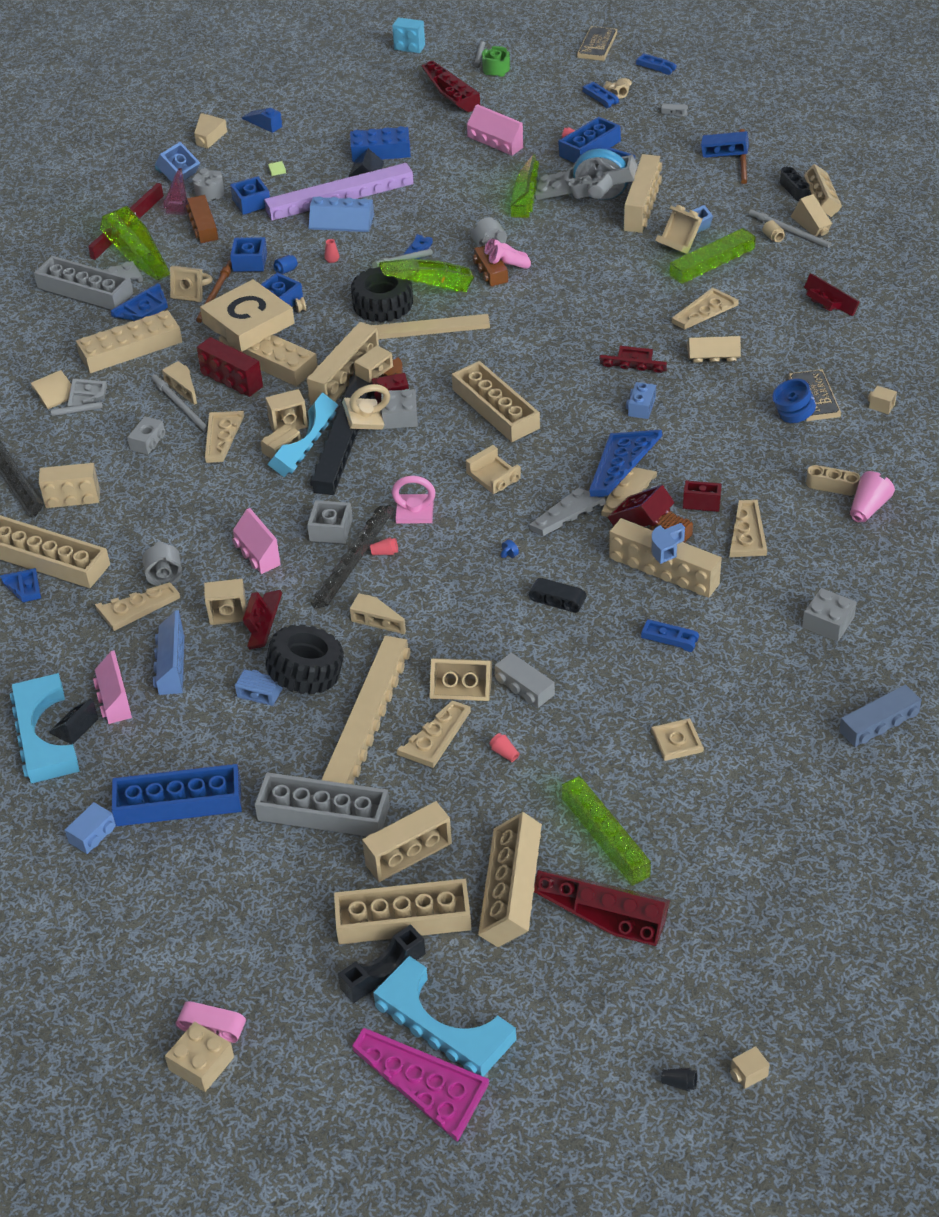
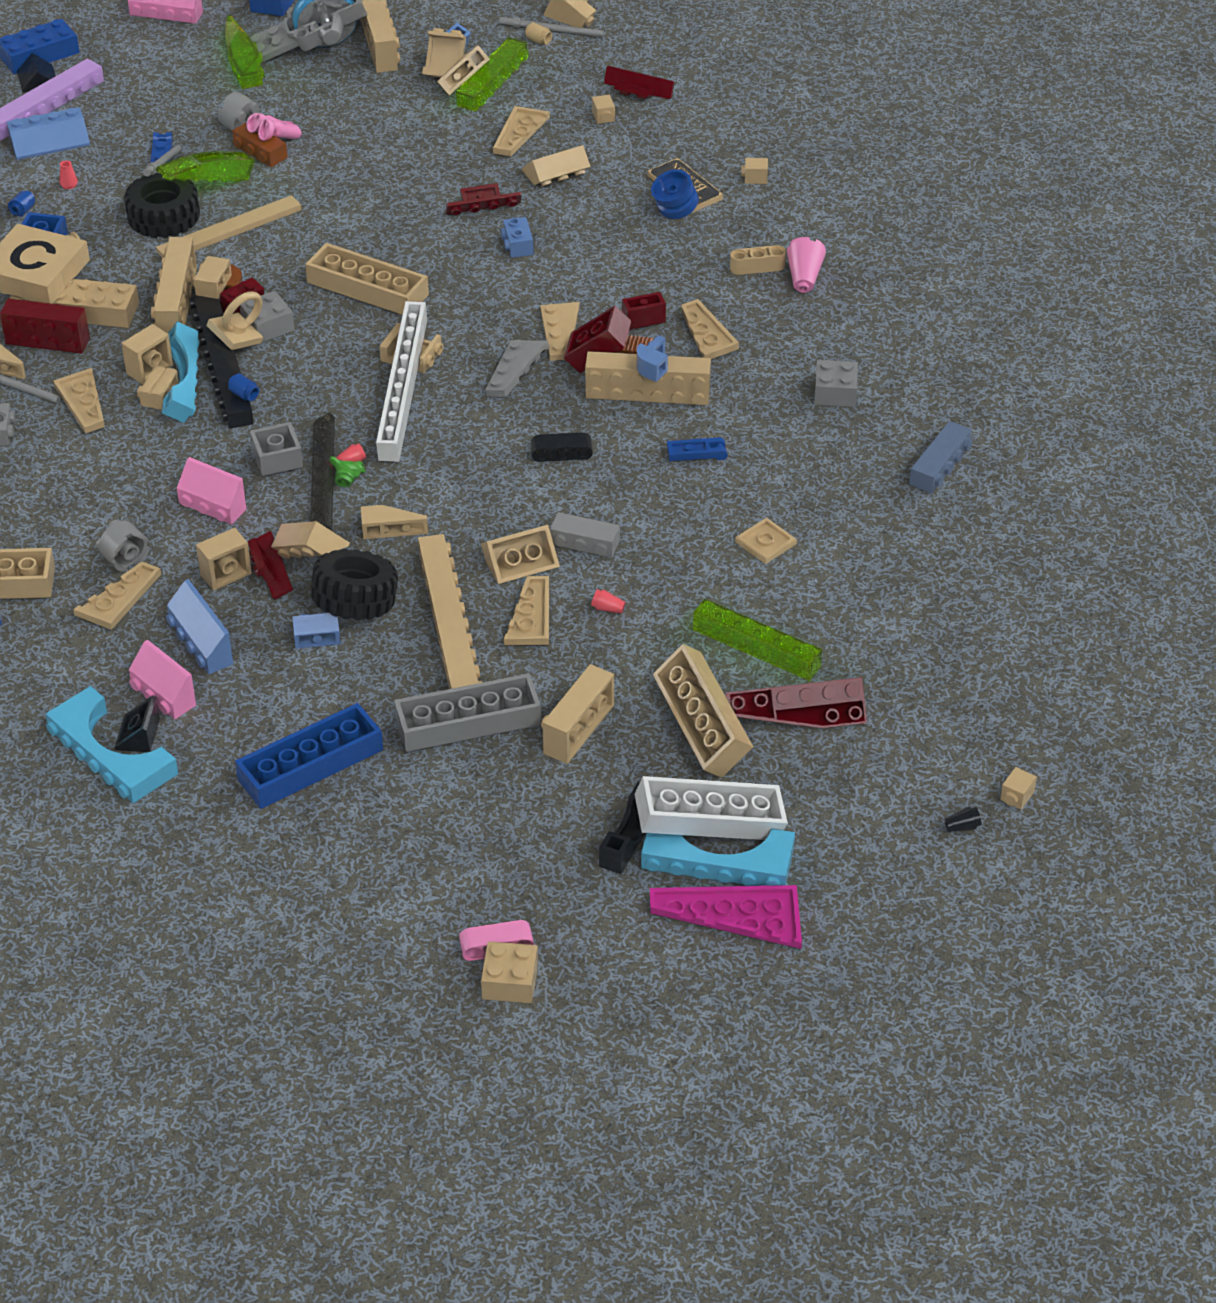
camera: 30 degrees left, 0 degrees up
(90, 828) = (240, 817): medium blue brick -> none
(291, 610) = (306, 540): none -> tan slope
(334, 462) = (243, 387): none -> blue brick
(373, 559) = (346, 471): none -> bright green animal
(387, 910) = (612, 775): tan brick -> none
(414, 507) = (355, 408): bright pink tile -> none
(452, 975) = (709, 808): none -> white brick
(461, 496) = (401, 382): none -> white brick
(509, 549) = (482, 418): blue tile -> none
(620, 457) = (538, 298): blue wing -> none
(685, 245) = (463, 69): none -> tan slope
(785, 309) = (603, 109): none -> tan brick

